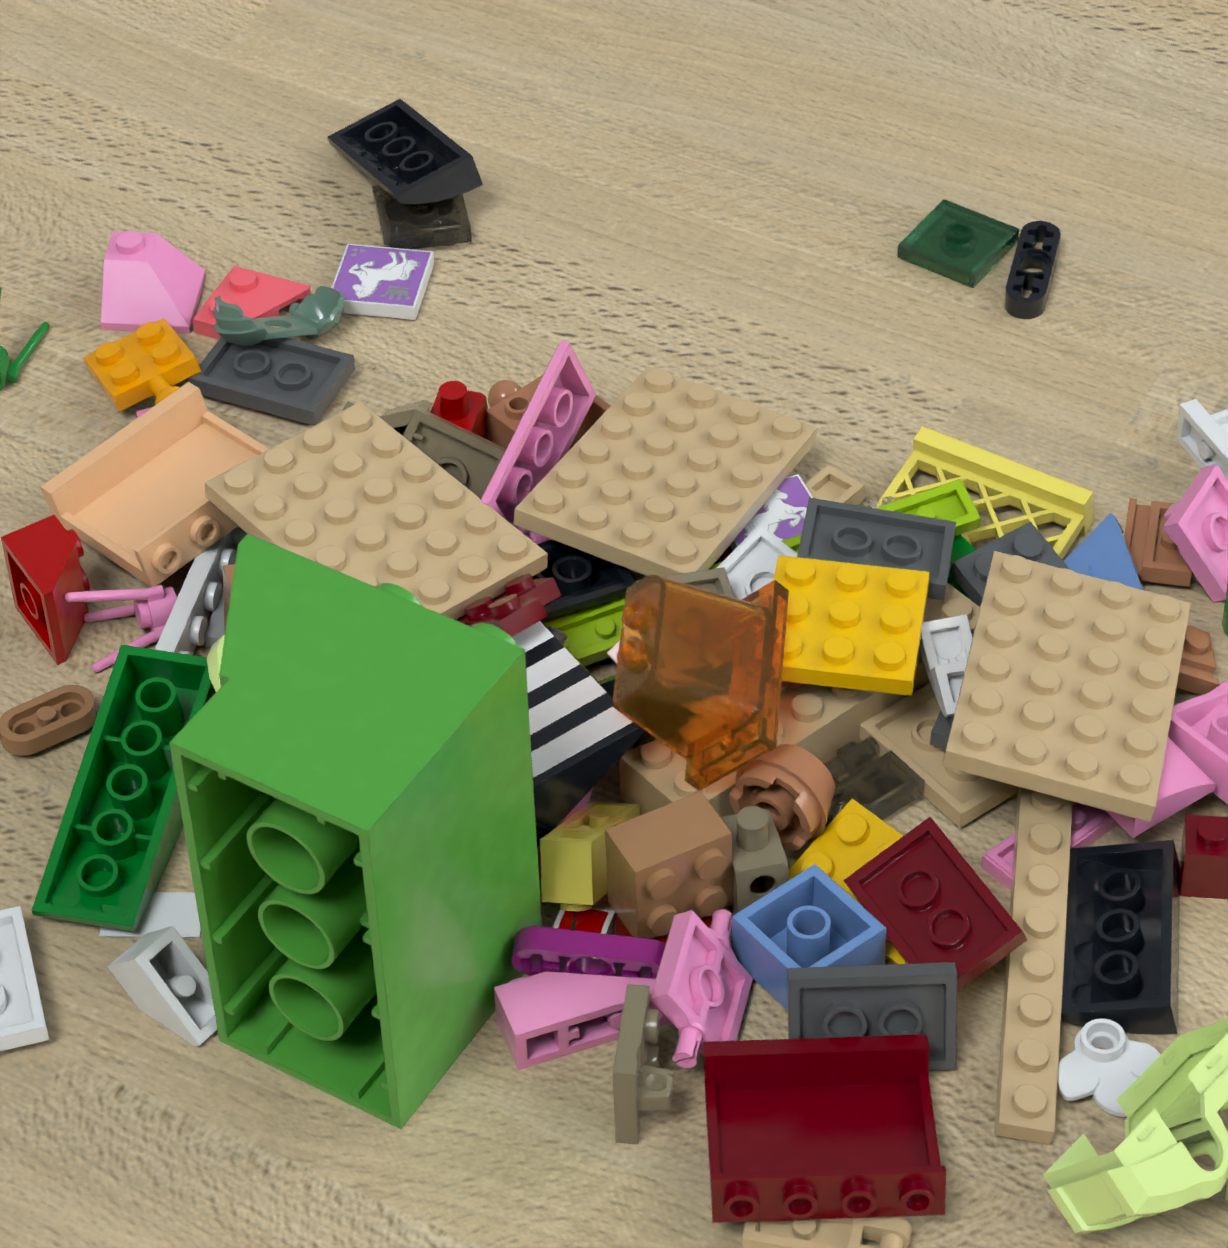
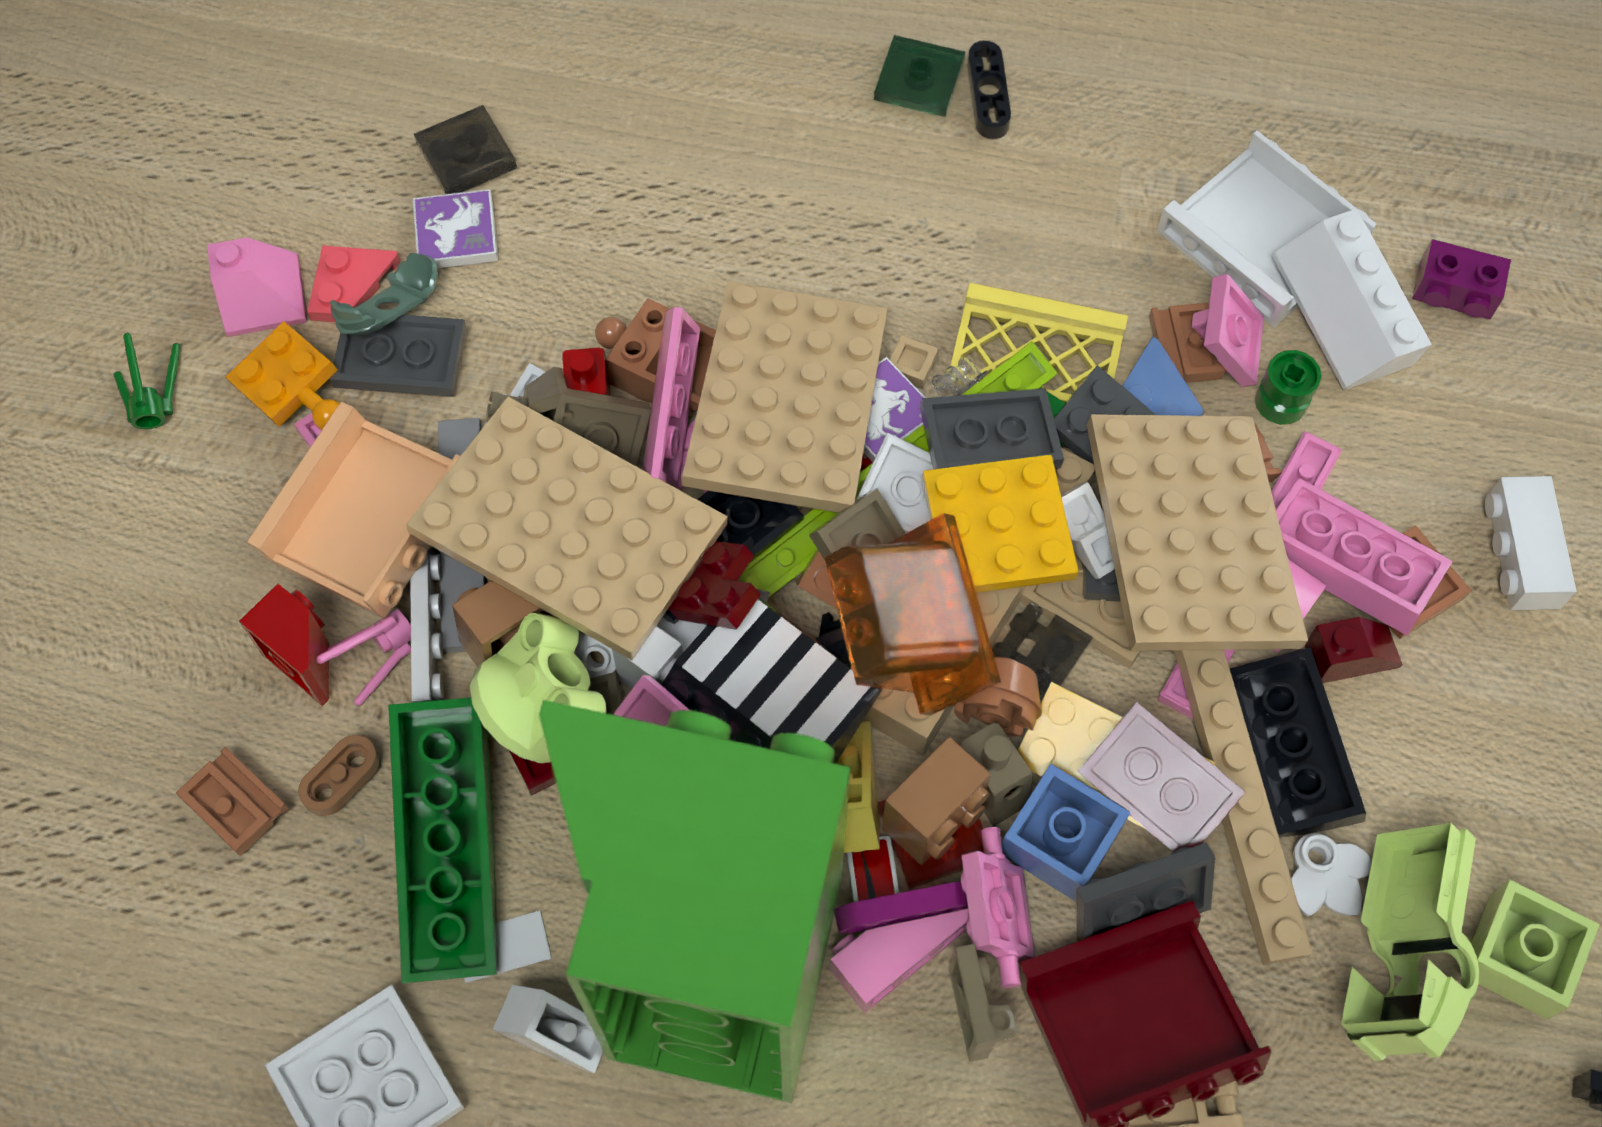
camera: 20 degrees left, 20 degrees up
(407, 155) = (433, 98): black slope -> none

